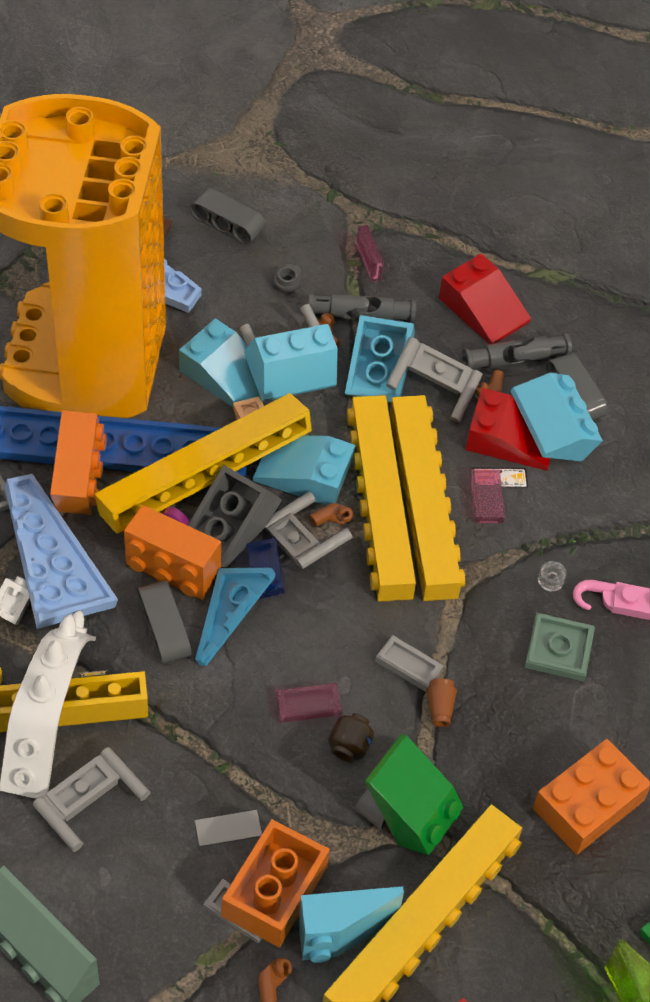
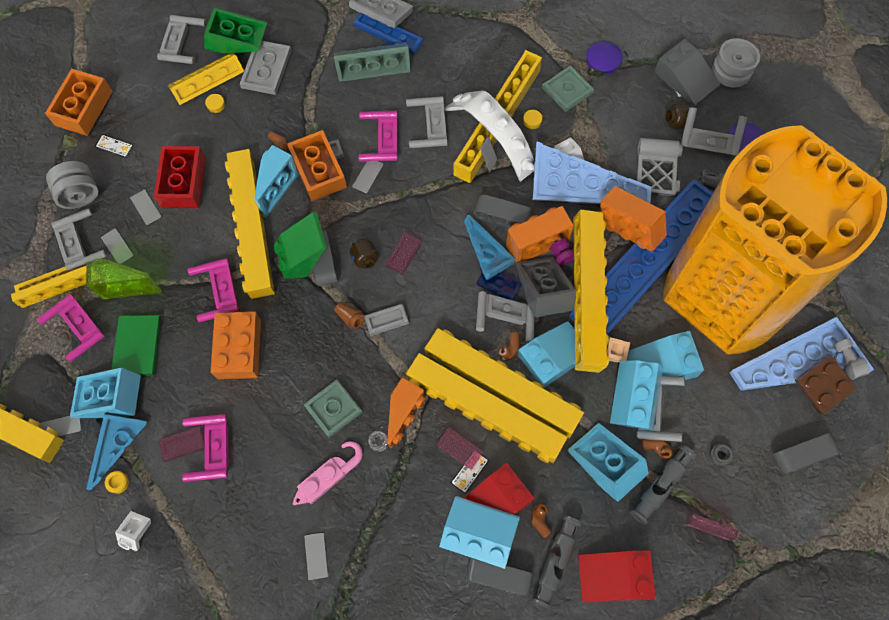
camera: 135 degrees right, 15 degrees up
(153, 836) = (386, 136): none -> dark pink plate
(438, 369) = (570, 487): light grey plate -> none
(496, 572) = (403, 404): none -> orange slope
(539, 877) = (222, 287): none -> dark pink plate

